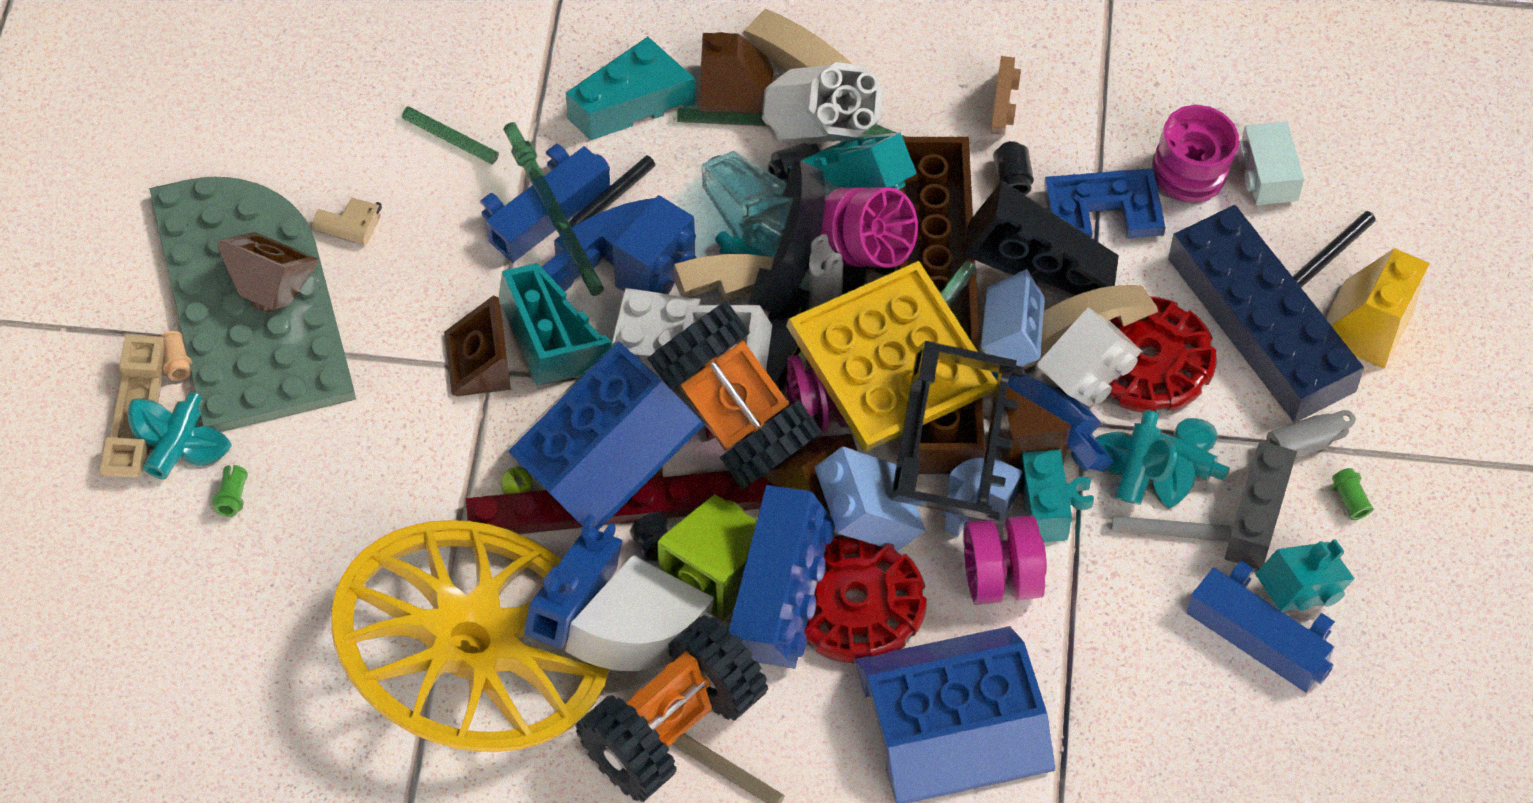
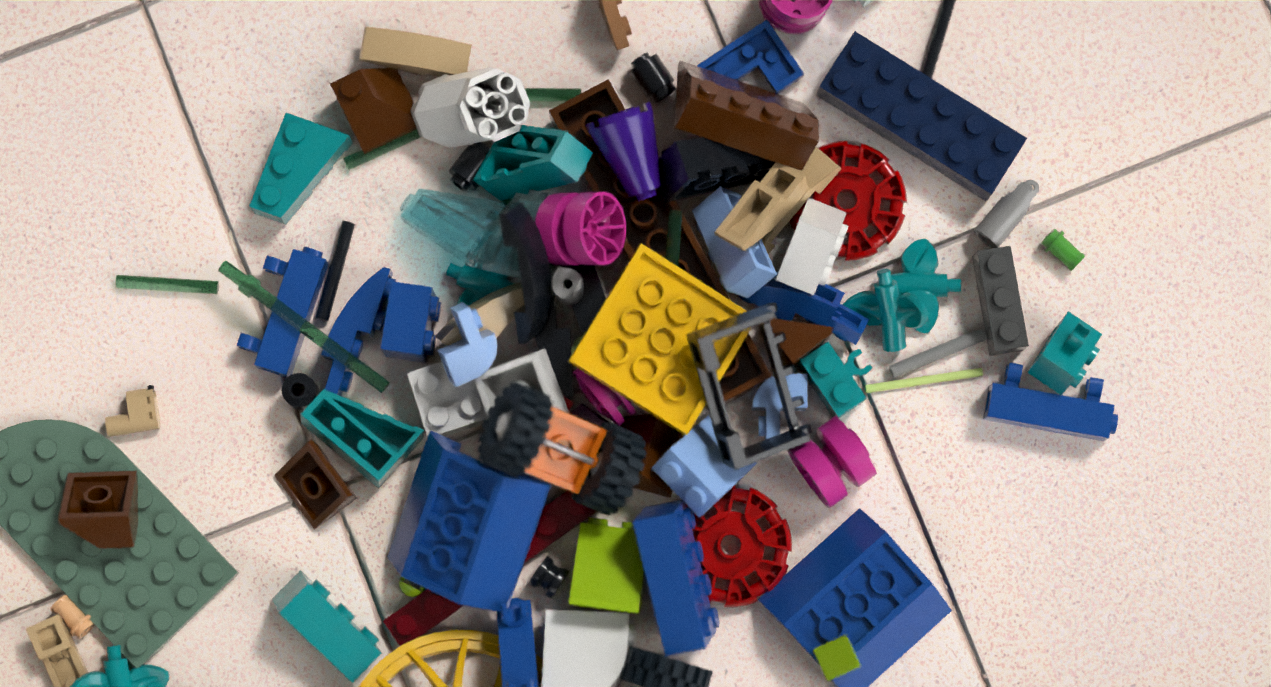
camera: 30 degrees left, 25 degrees up
(409, 467) = (327, 625): none -> teal wedge
(512, 255) = (310, 393): none -> black brick
(699, 283) = (471, 355): none -> light blue brick
(905, 728) = (836, 657): none -> lime slope
(955, 183) = (630, 149): none -> dark purple cone
(1061, 289) = (763, 206): none -> tan slope
(1083, 209) = (744, 116): none -> reddish brown slope
(1142, 547) = (923, 380): none -> yellowish green axle
(1378, 305) = (1007, 70): yellow slope -> none

